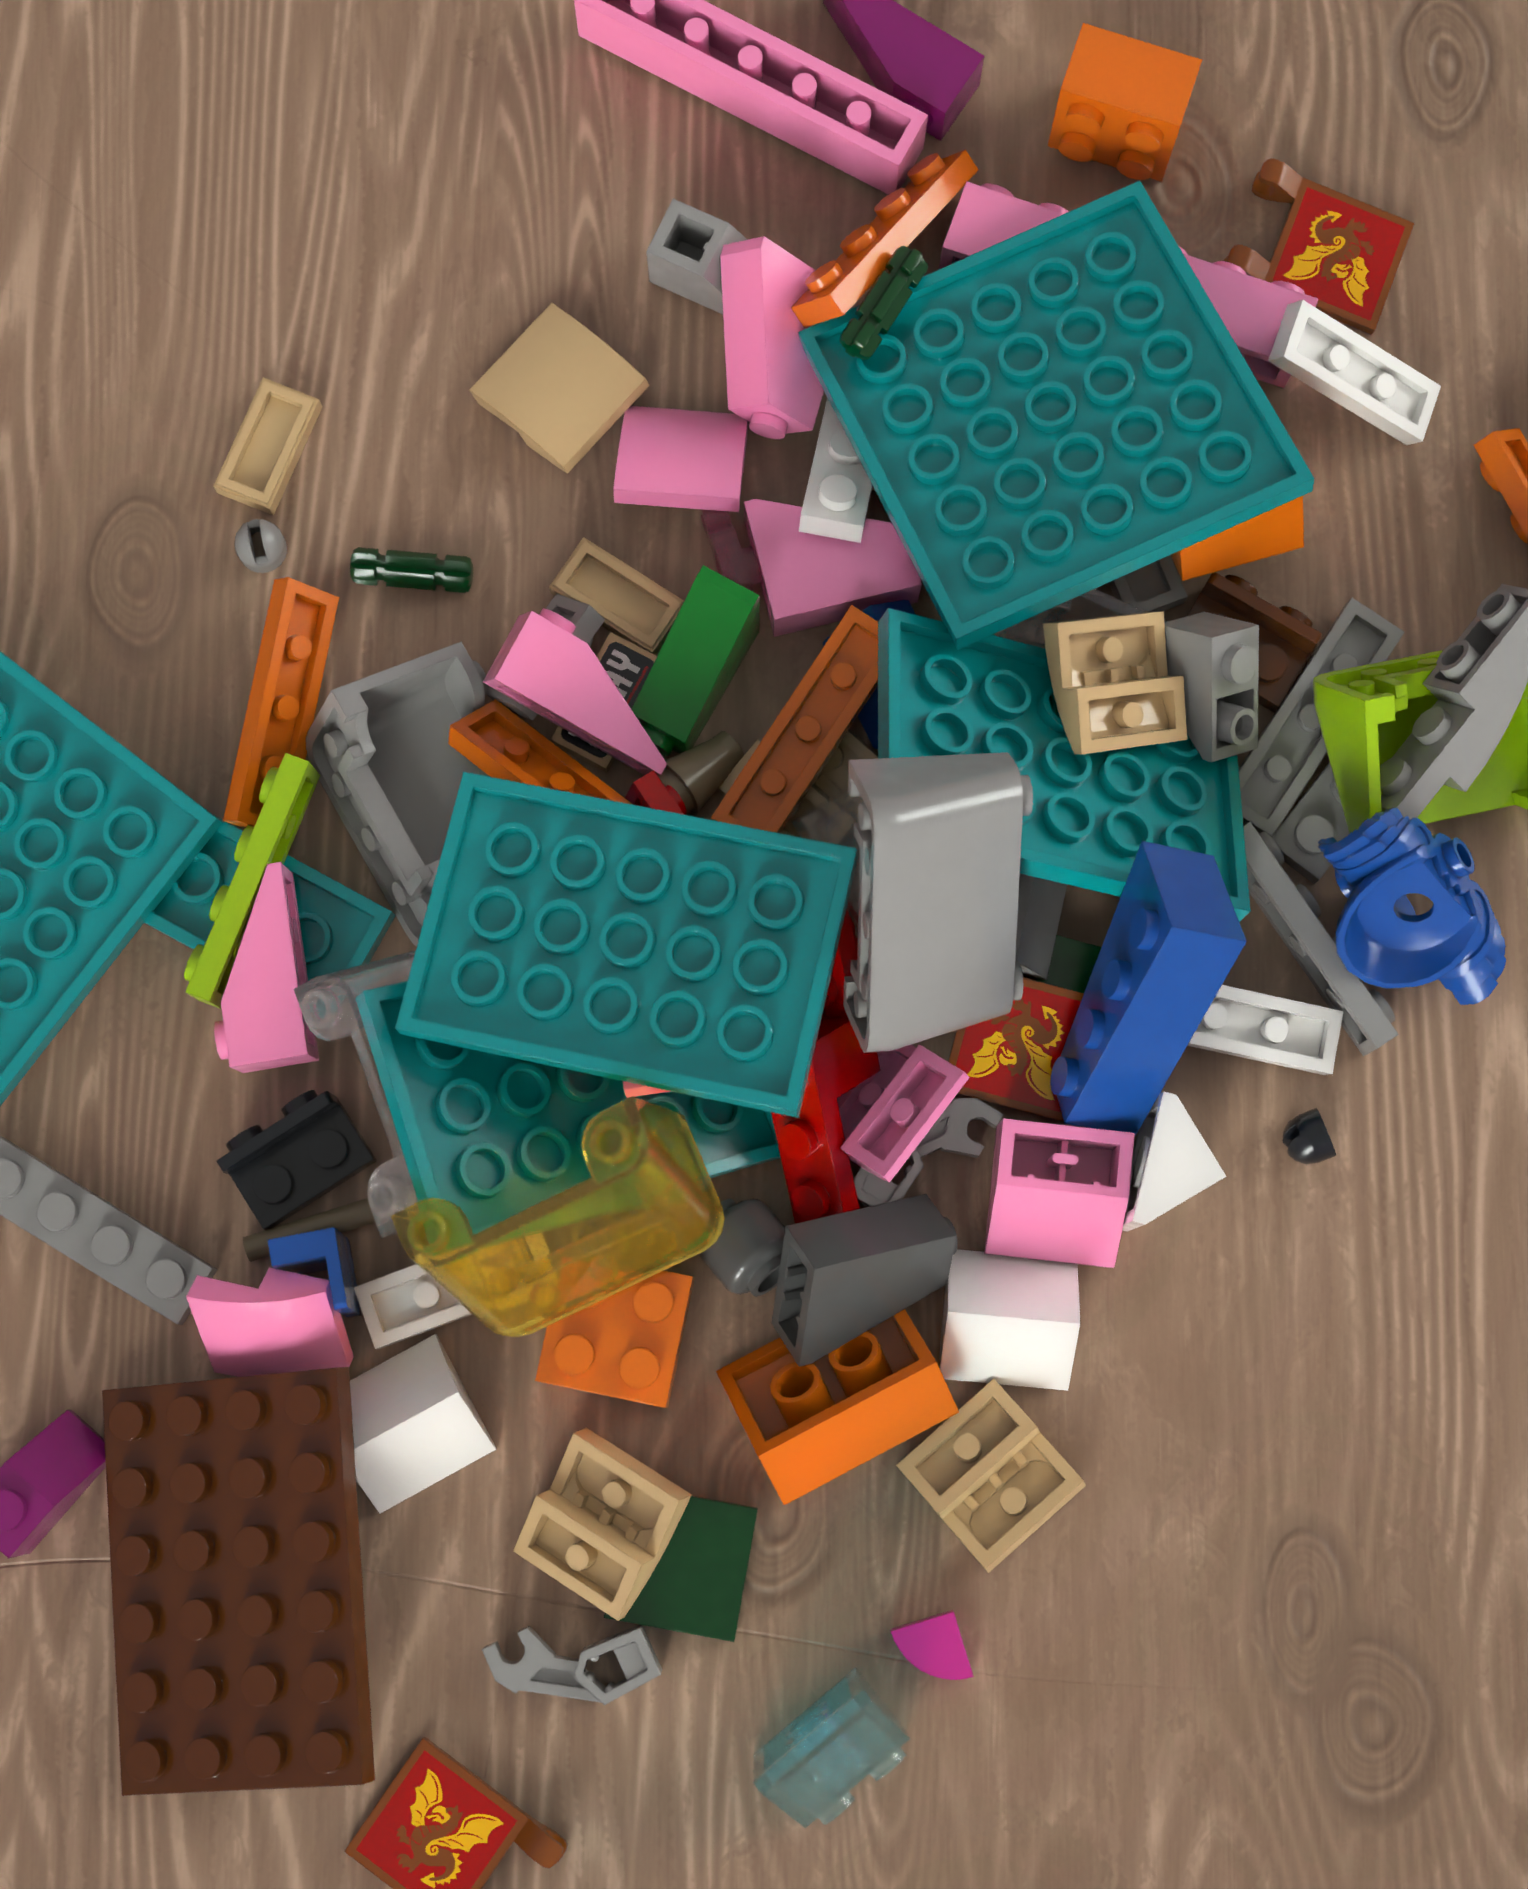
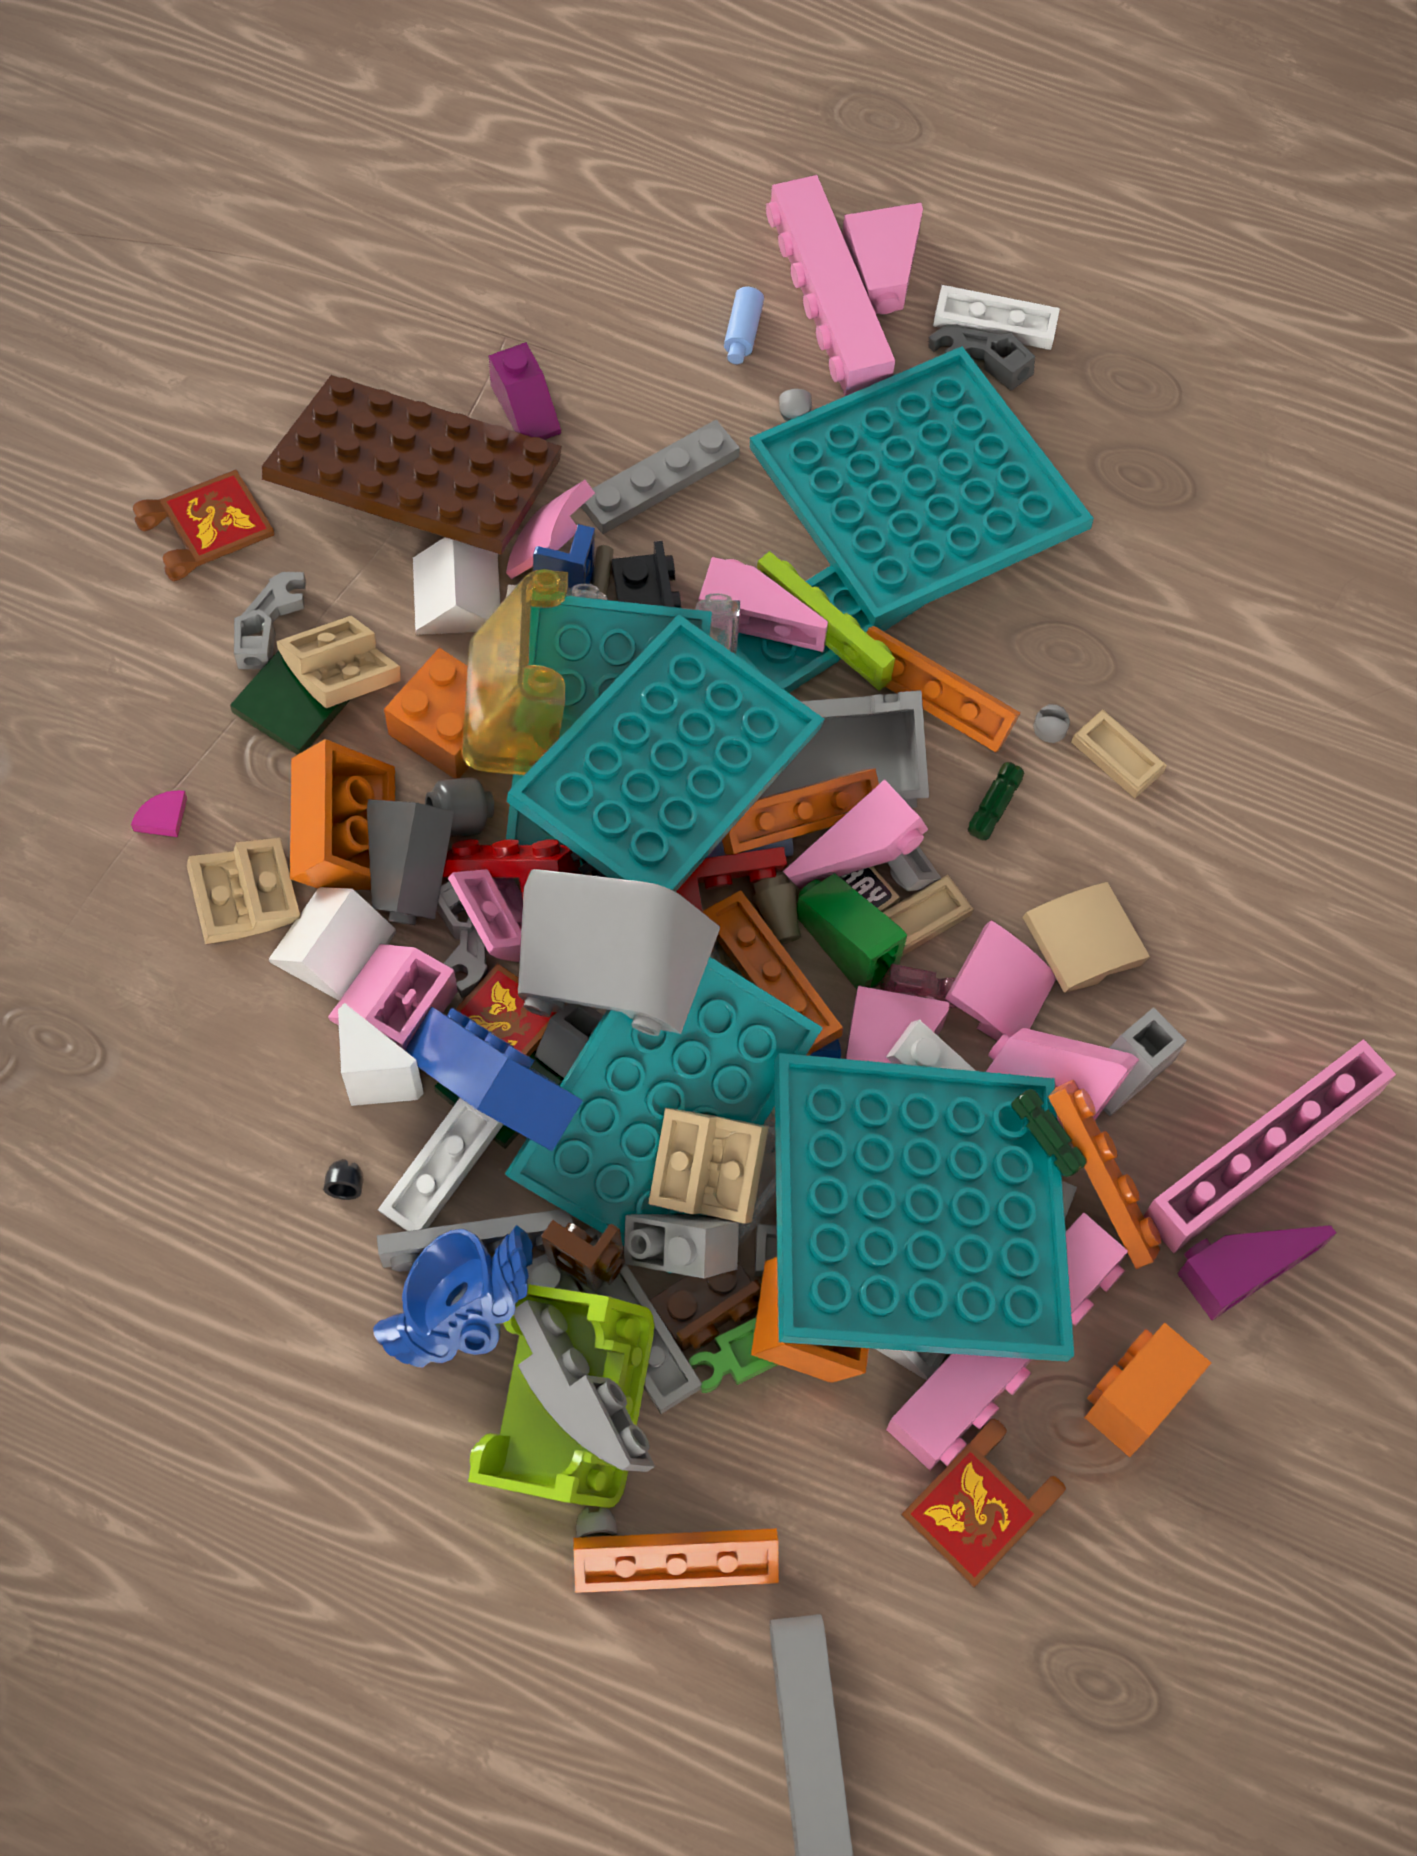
camera: 110 degrees right, 15 degrees down
(829, 1751) = (135, 715): clear light blue slope -> none
(1293, 579) = (732, 1358): none -> bright green plate
(1305, 777) = (572, 1253): none -> reddish brown bracket
(1354, 372) = (867, 1460): white plate -> none

